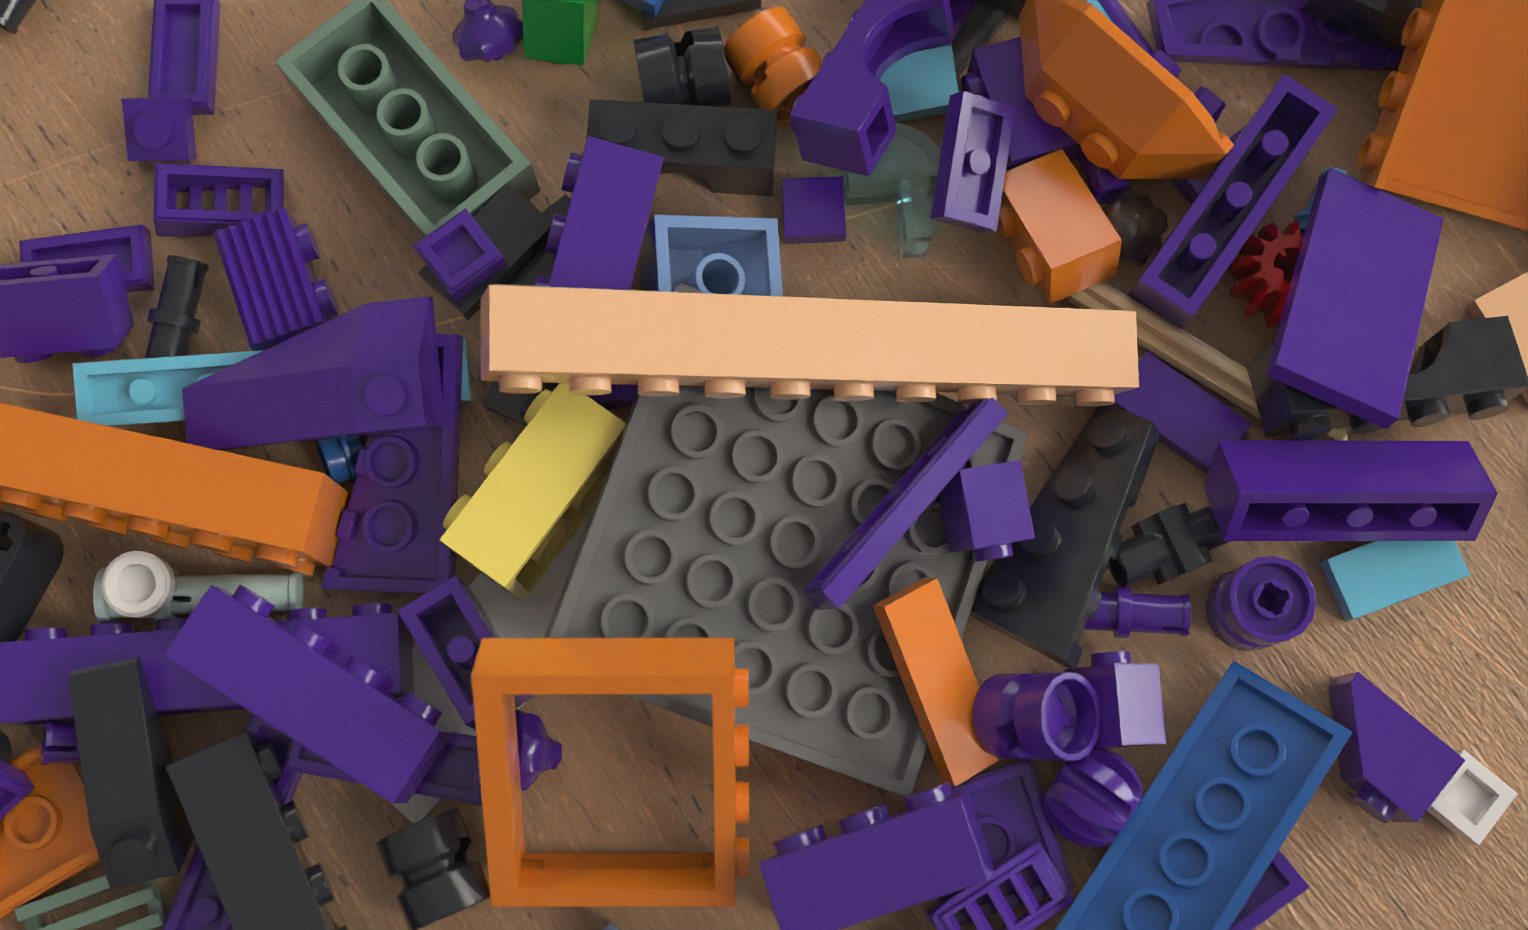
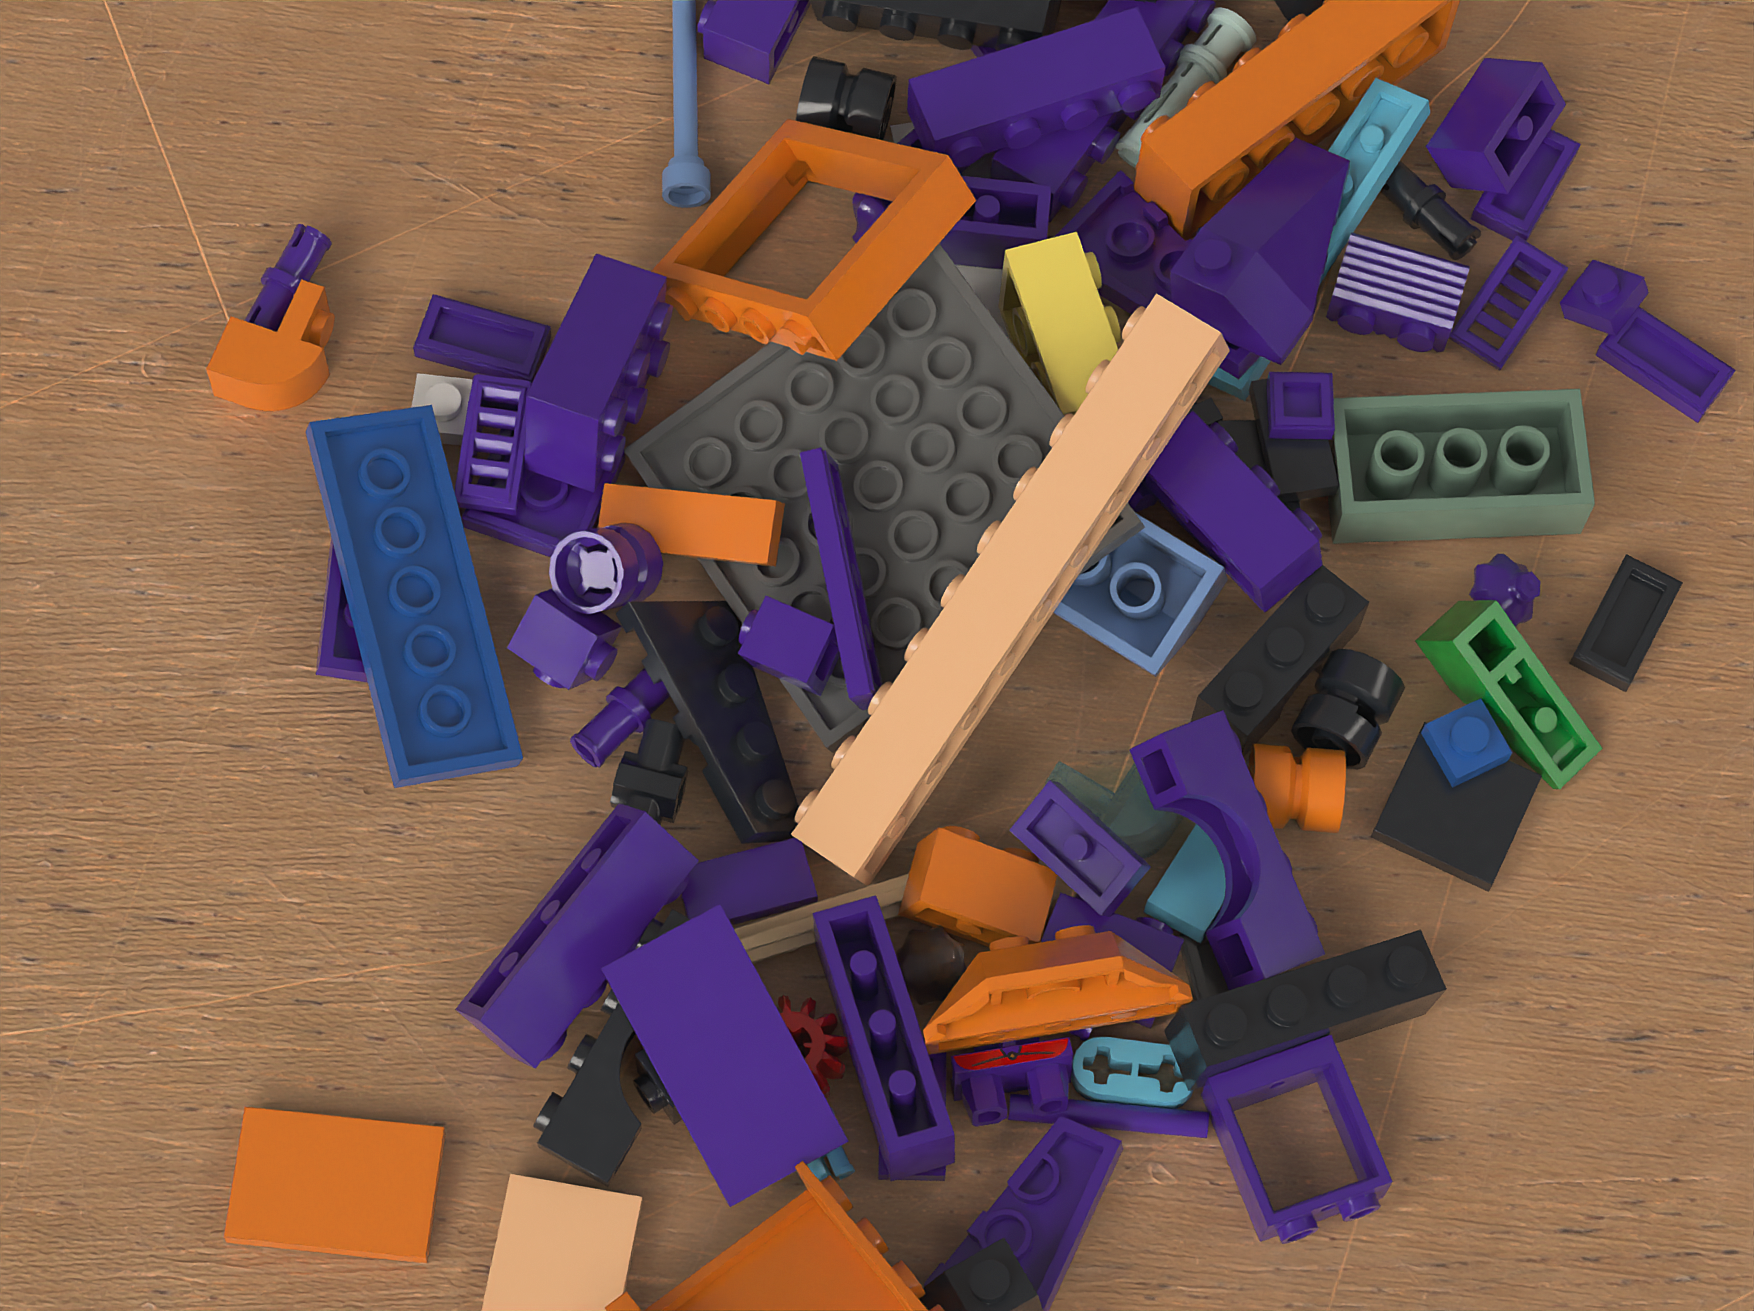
camera: 125 degrees right, 10 degrees down
(138, 584) = (1216, 42): white tile -> none
(813, 210) = (1140, 723): dark purple tile -> none
(1093, 798) = (511, 569): dark purple piece -> none
(1261, 604) = (552, 818): dark purple wheel -> none
(1390, 573) = (485, 927): medium azure tile -> none
(1390, 755) = (360, 813): dark purple slope -> none
(1472, 801) = (275, 847): white plate -> none

